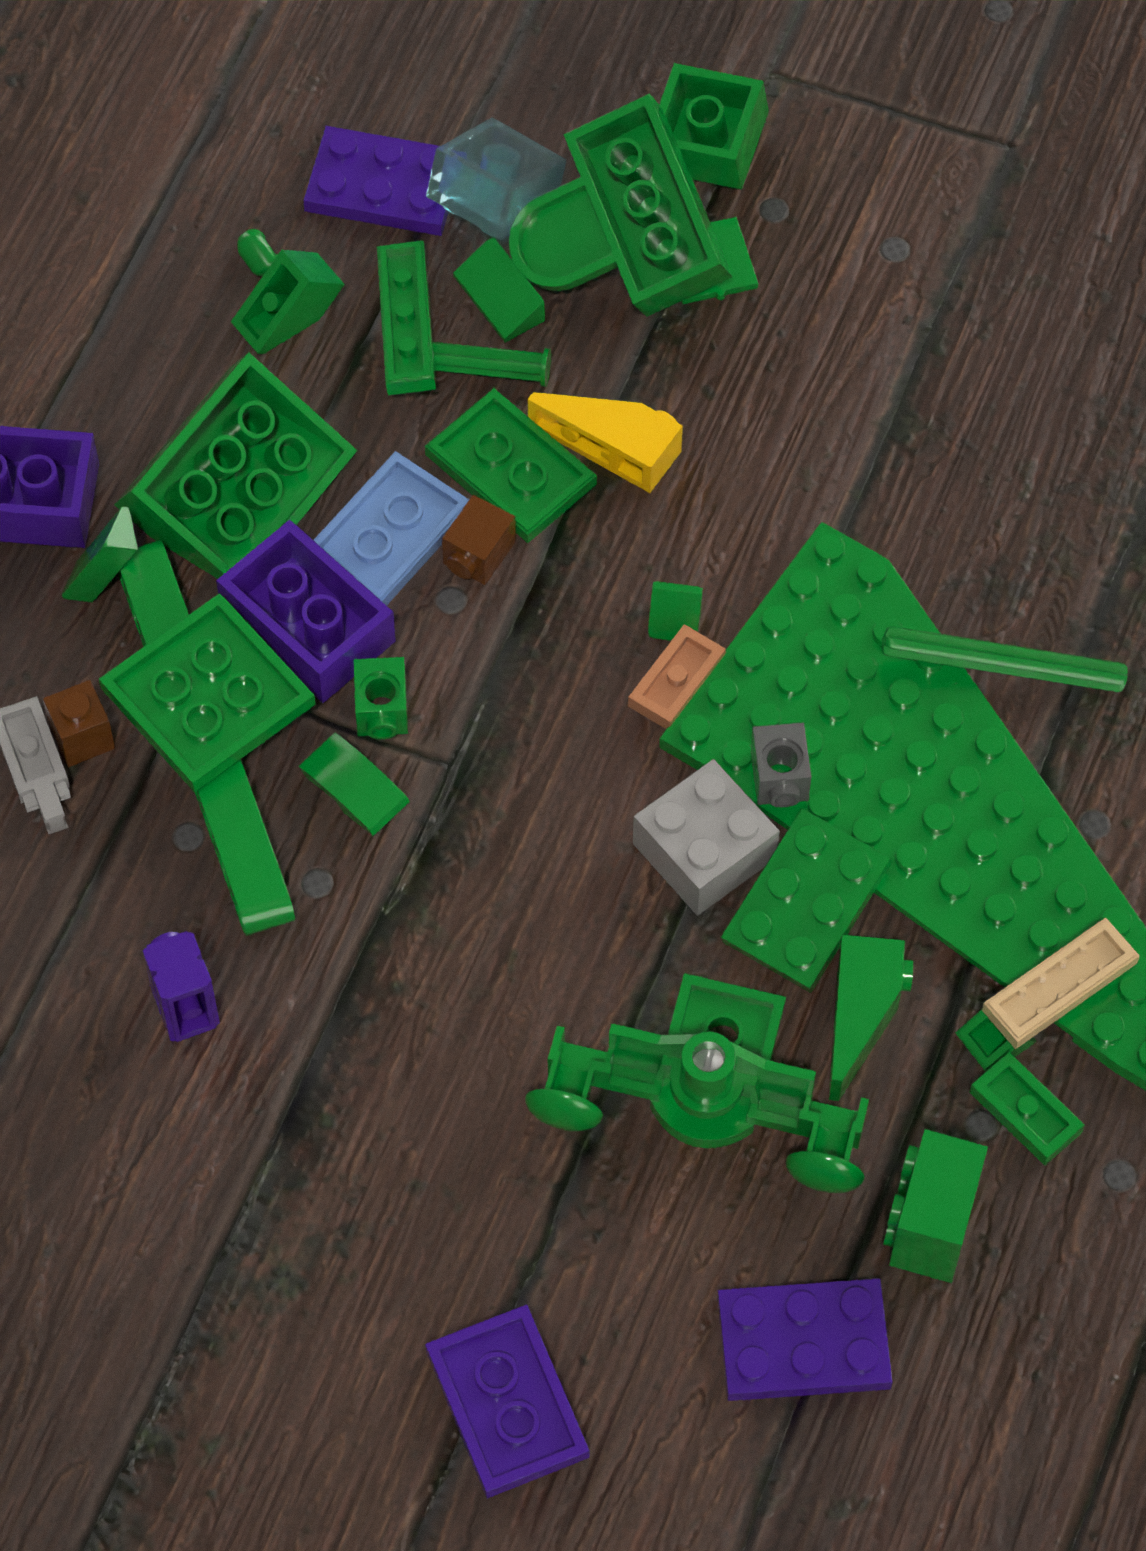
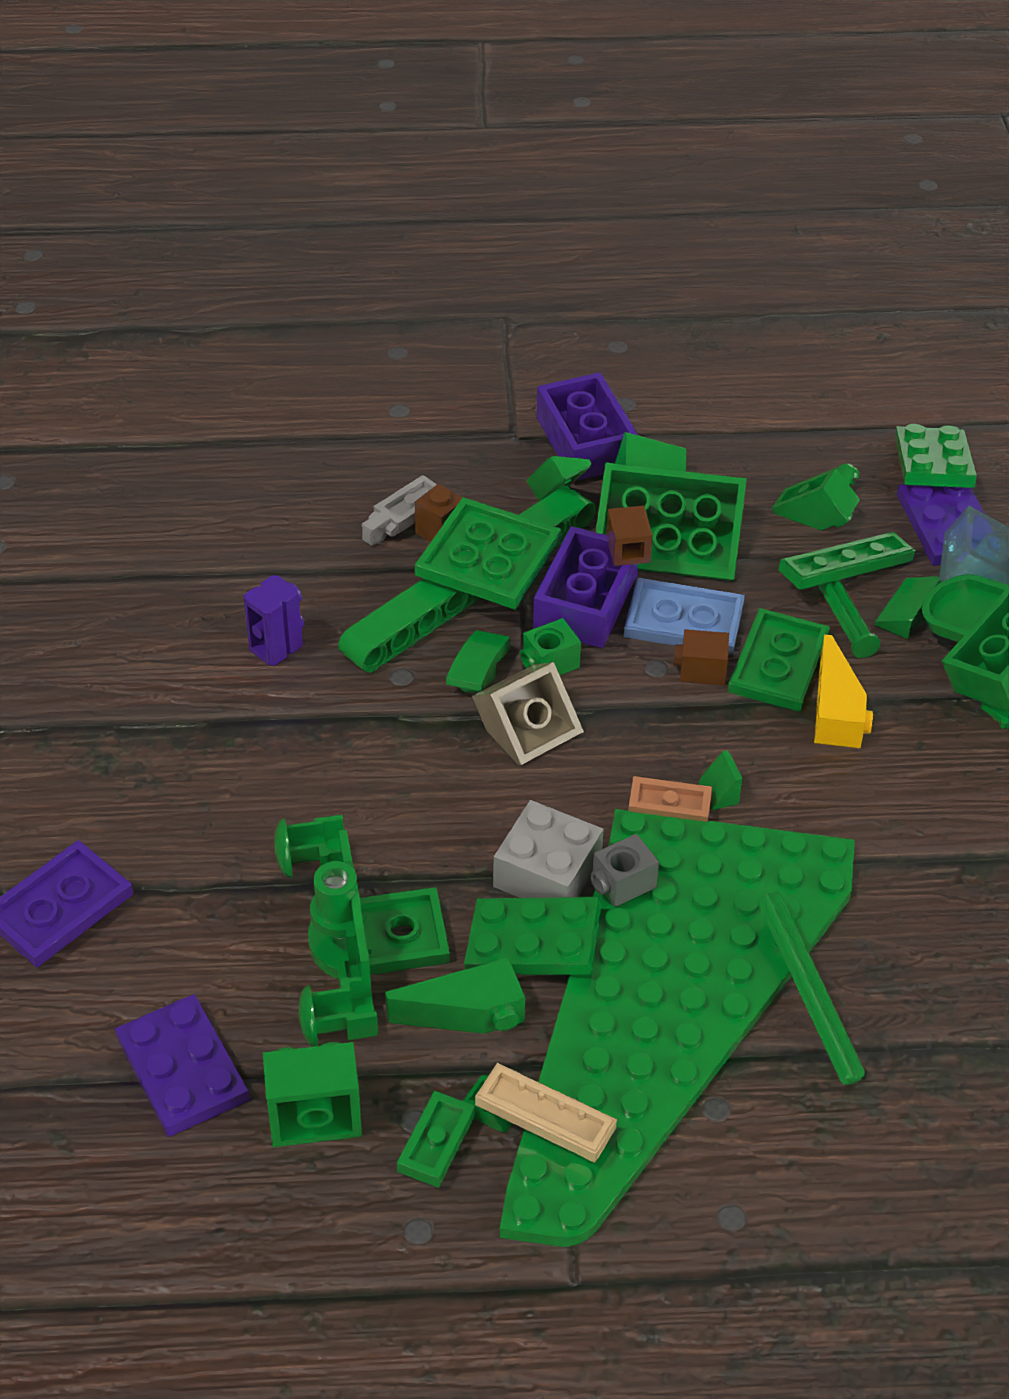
camera: 65 degrees right, 15 degrees down
(127, 440) = (650, 453): none -> green slope
(283, 138) = (935, 456): none -> green plate
(288, 522) = (629, 535): none -> reddish brown brick
(466, 764) = (528, 712): none -> dark tan slope

